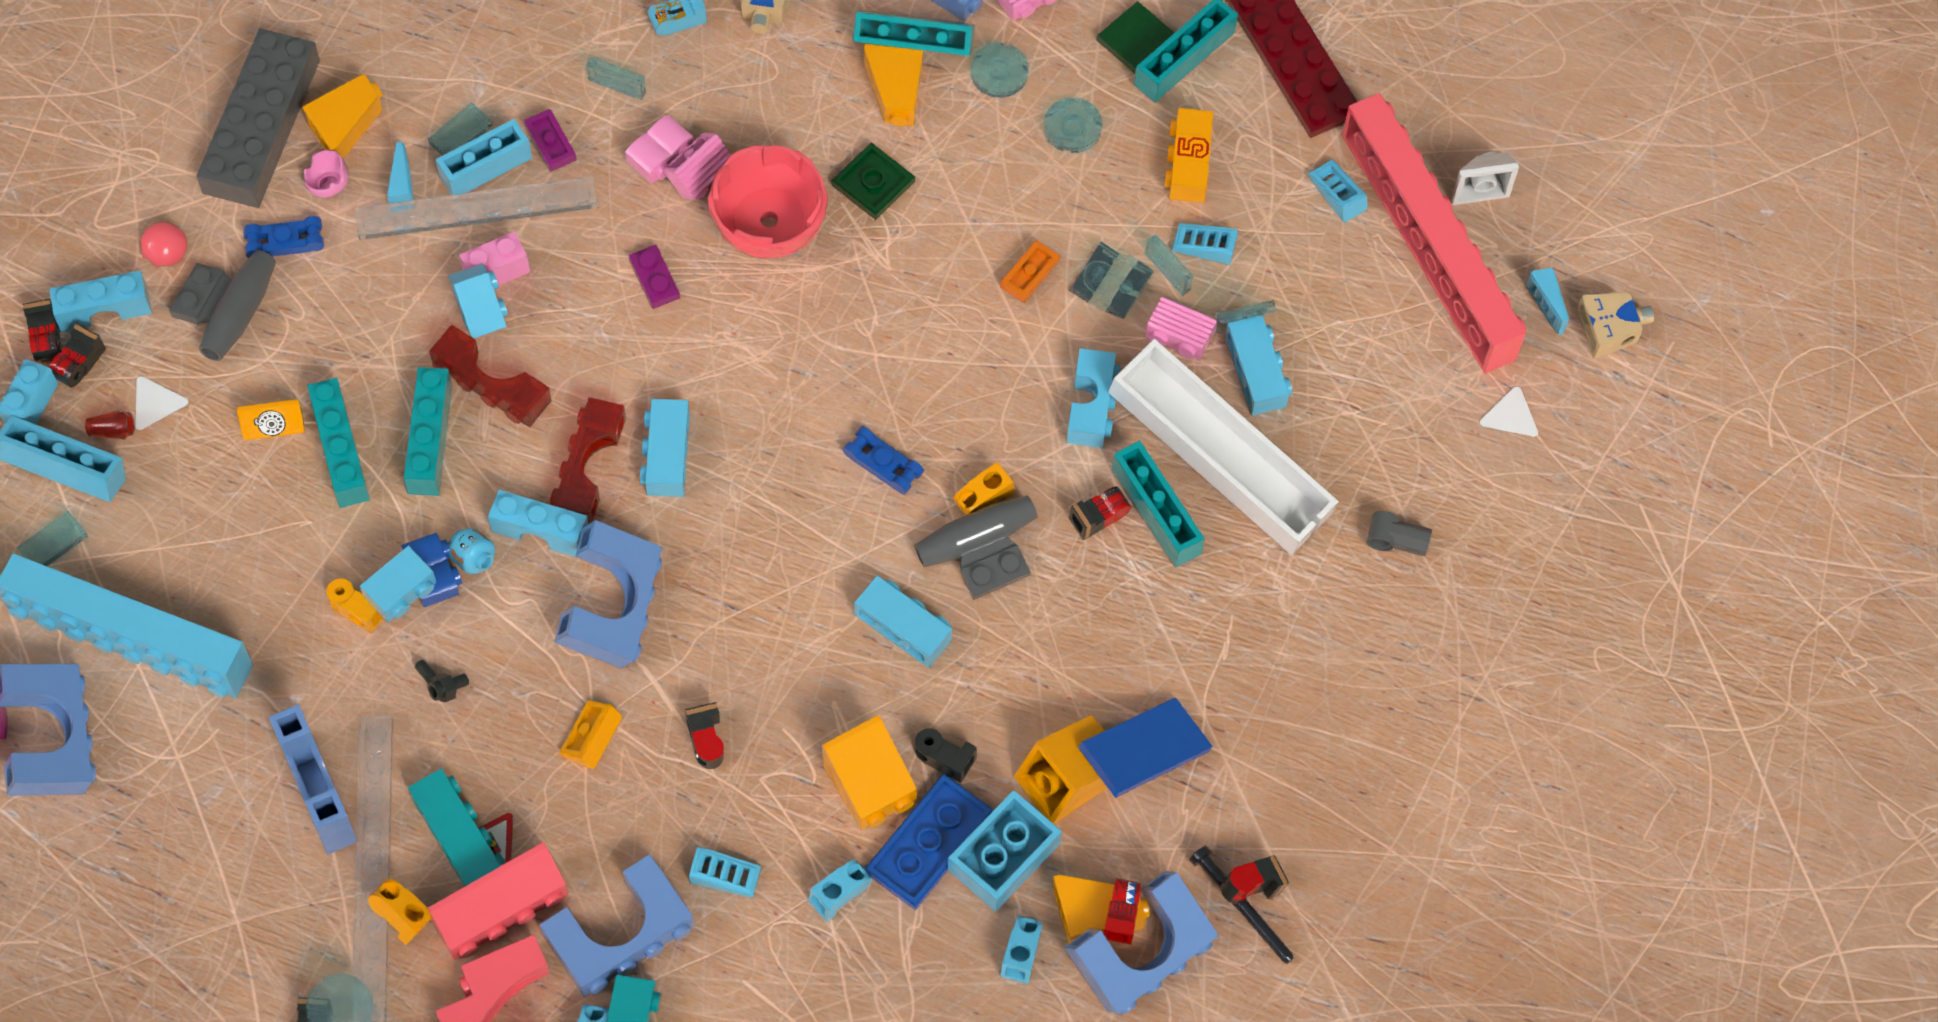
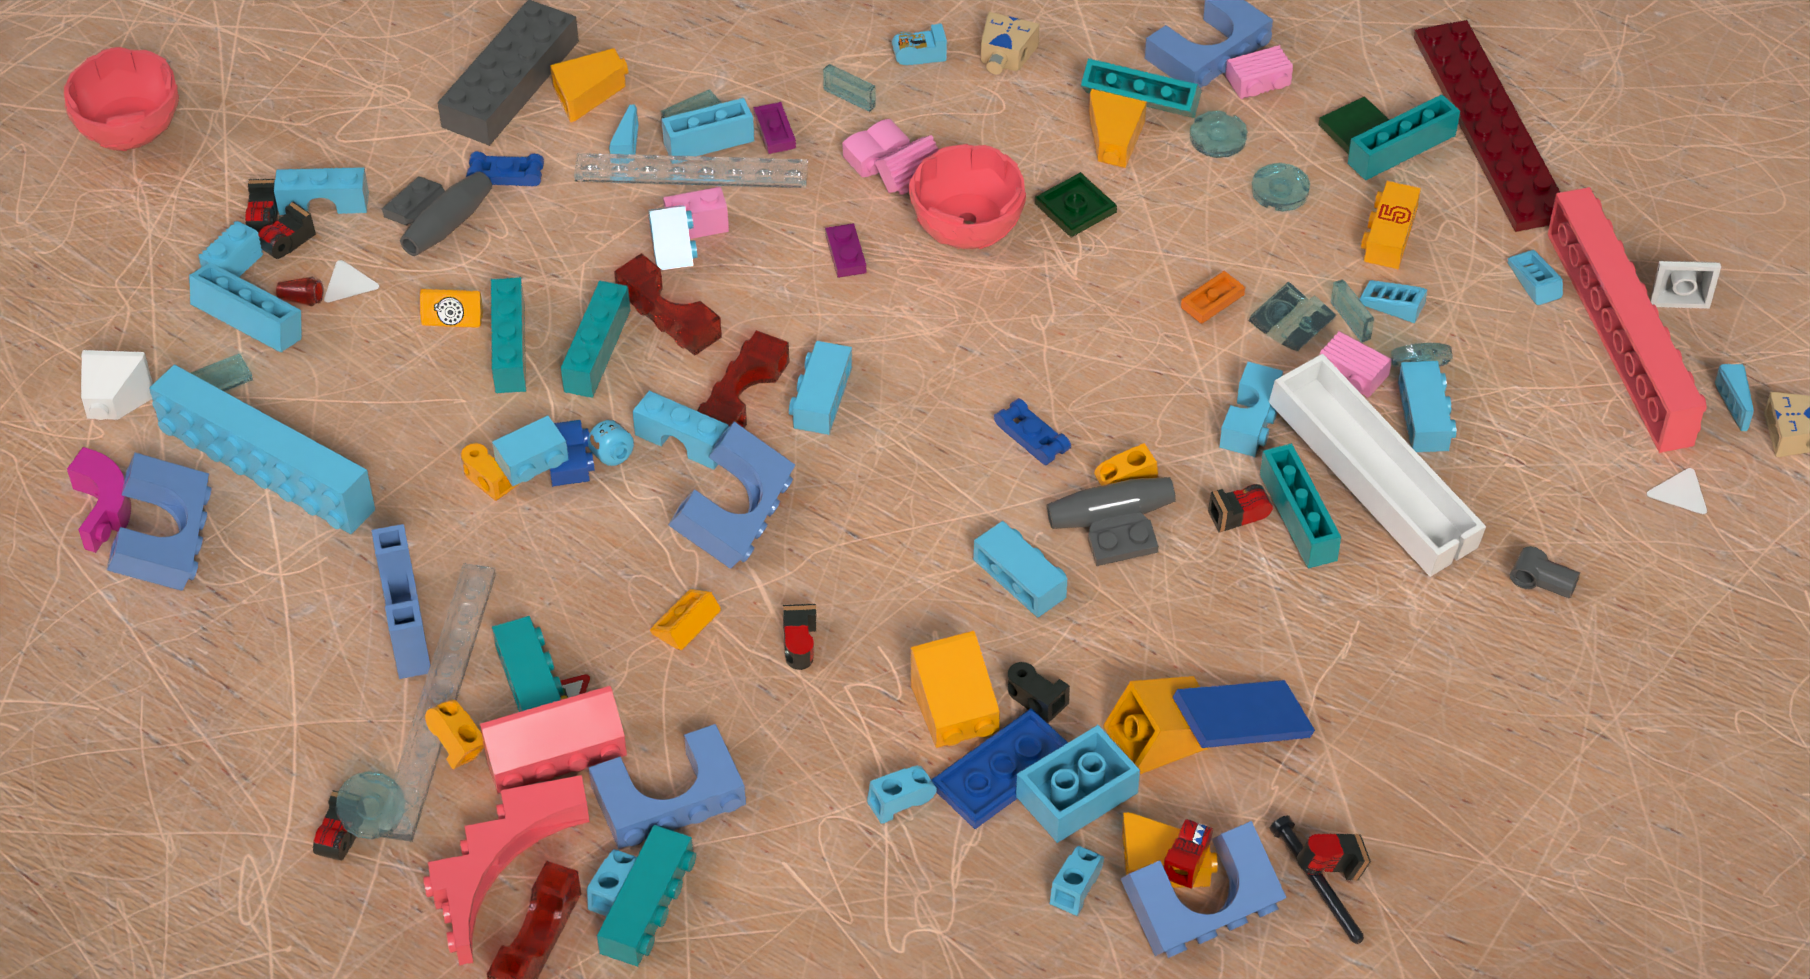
camera: 15 degrees right, 15 degrees down
(163, 244) = (393, 157): coral hair -> none
(327, 174) = (559, 124): bright pink hair -> none
(441, 686) = (551, 552): pearl dark grey piece -> none
(715, 858) = (790, 750): medium azure slope -> none

